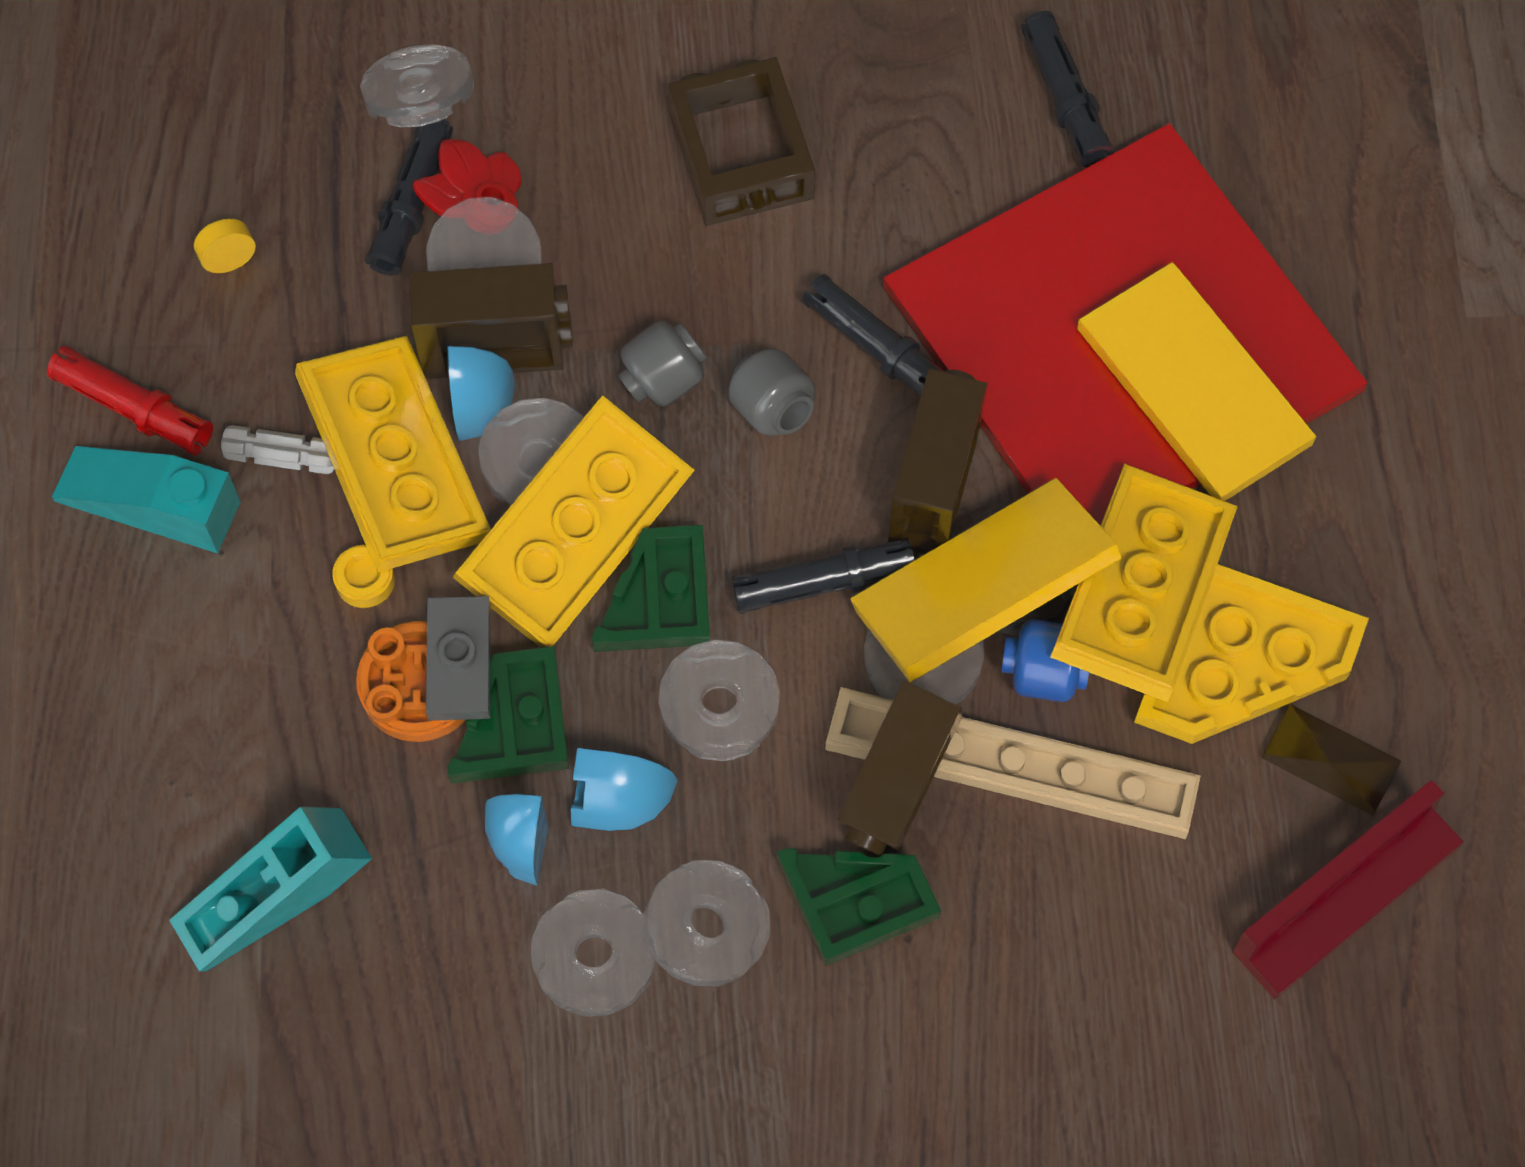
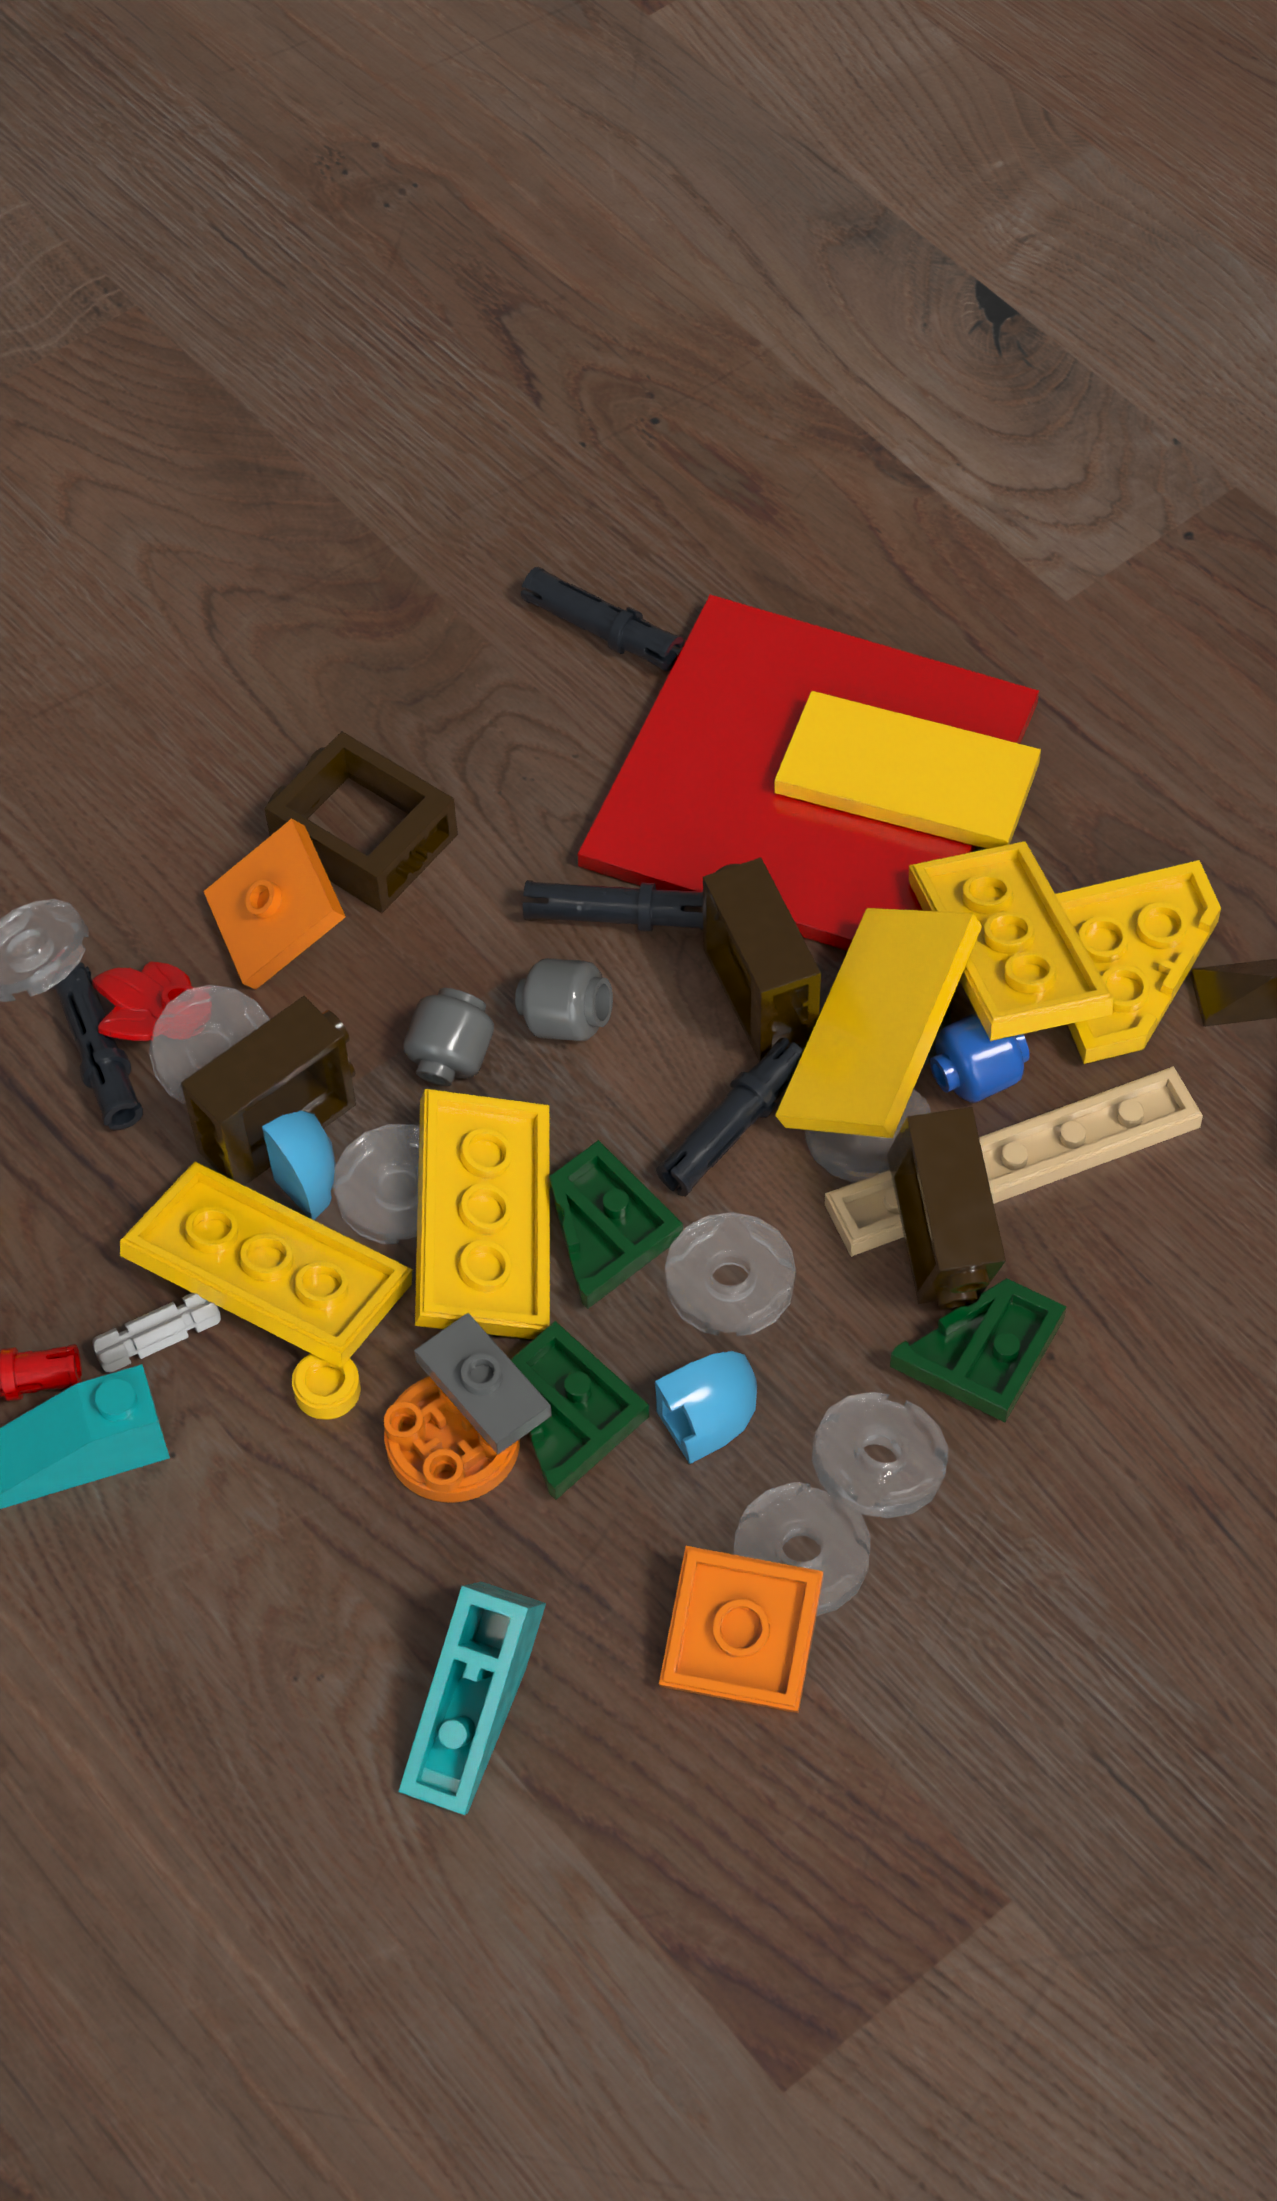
camera: 35 degrees left, 10 degrees down
(494, 982) = (741, 1629): none -> orange plate
(517, 833) = (657, 1491): dark azure brick -> none
(618, 167) = (274, 904): none -> orange plate

